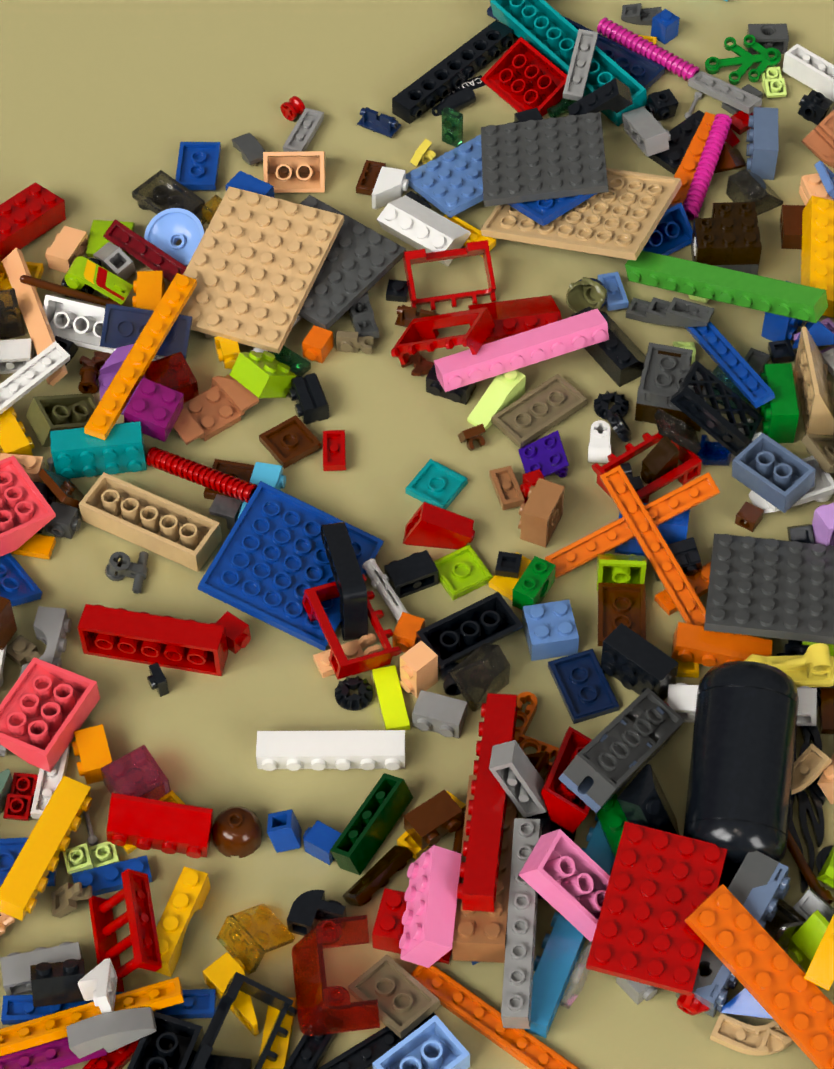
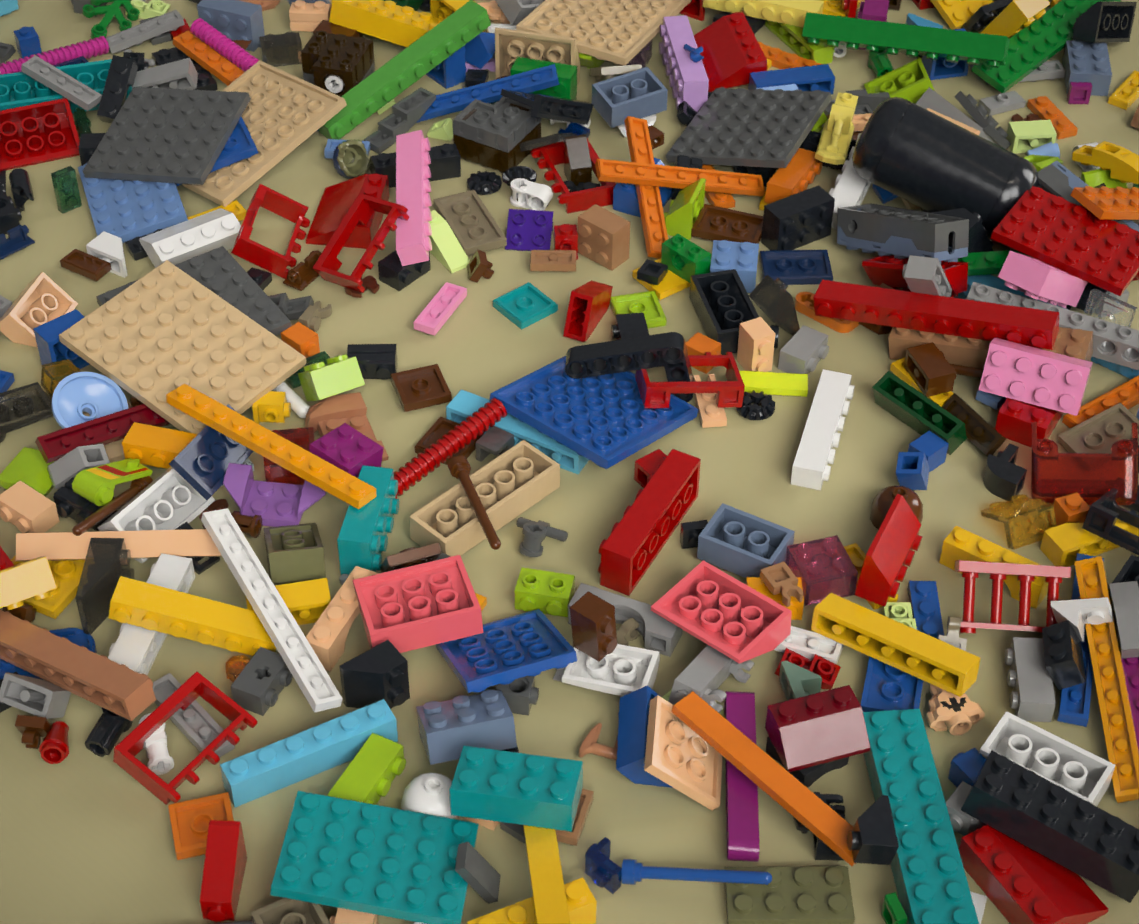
camera: 75 degrees left, 10 degrees down
(60, 588) = (544, 591): none -> lime brick
(92, 745) = (781, 580): none -> medium nougat plate
(148, 716) = (743, 542): none -> sand blue brick
(164, 488) = (460, 469): none -> reddish brown piece
(268, 973) = (1070, 509): none -> orange brick
(334, 450) = (449, 359): red plate -> none
(402, 425) = (440, 308): none -> bright pink plate
(423, 153) = (79, 222): light yellow tile -> none

